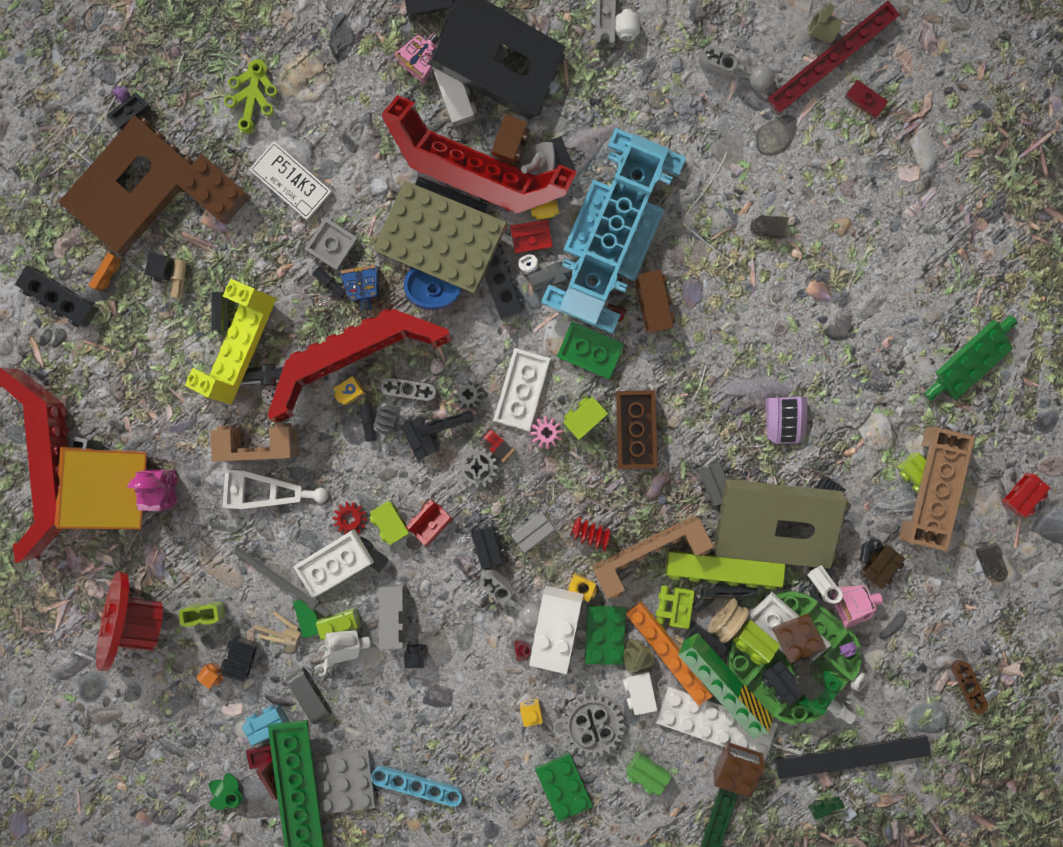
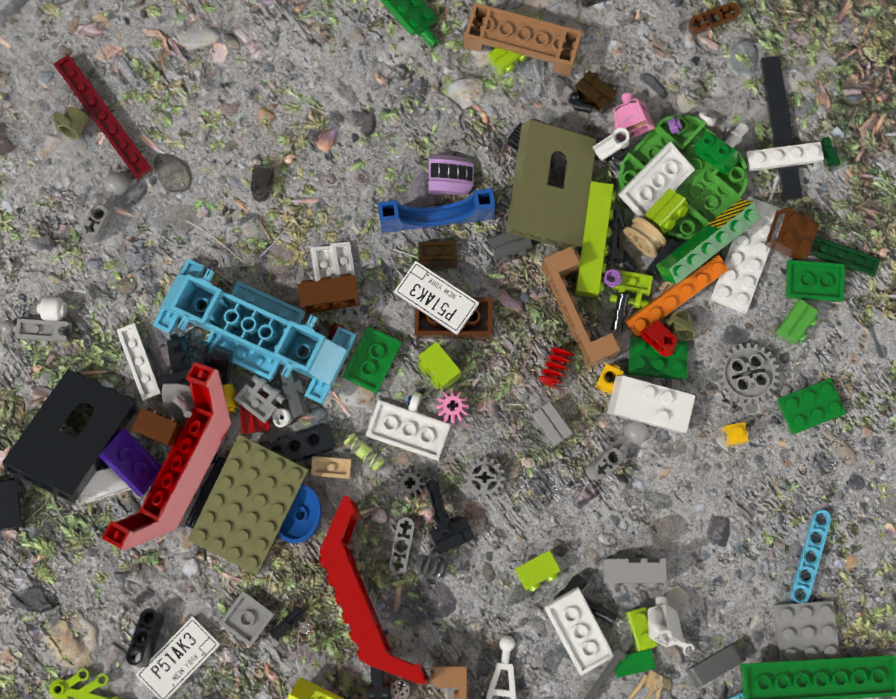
camera: 85 degrees left, 10 degrees down
(301, 139) = (145, 648): none -> black beam
(345, 511) = (536, 620): red gear -> none
(348, 390) = (400, 607): yellow brick -> none
(353, 584) = (608, 615): none -> black pin
(362, 285) = (292, 588): torso -> none
(368, 422) = (433, 589): black axle -> none
(415, 656) = (676, 550): black brick -> none
(416, 55) = (63, 517): torso -> none
(429, 522) = (539, 529): red bracket -> none
(474, 117) = (131, 462): none -> dark purple plate
(480, 316) = (331, 467): none -> tan plate
(488, 546) = (565, 470): black brick -> none
(497, 445) = (463, 456): leg -> none
(498, 347) = (363, 451): none -> yellowish green piece
(522, 650) = (672, 441): dark red plate -> none
(538, 238) = (255, 403): none -> light grey plate
(550, 393) = (413, 401): none -> white tile
(578, 117) = (139, 362): none -> white plate
(580, 198) = (220, 360): none -> black plate
(587, 156) = (178, 353): none -> black plate
(624, 636) = (659, 337): none -> red piece
(640, 691) = (715, 325): white brick -> none
(650, 596) = (620, 311): none -> black pin
(654, 411) = (436, 298): none -> white tile
(689, 304) = (332, 260): none -> white slope
(689, 588) = (613, 273): none -> medium lavender plate
(691, 791) = (814, 281): none -> green plate
(701, 410) = (438, 255): none -> dark brown plate
(751, 446) = (476, 207): none -> blue arch
(782, 681) = (706, 186): black brick -> none
(799, 638) = (662, 170): reddish brown plate -> none
(809, 678) = (701, 162): clear smoke brick -> none
(821, 761) = (784, 156): none -> white plate
(866, 99) = (145, 88): dark red plate -> none

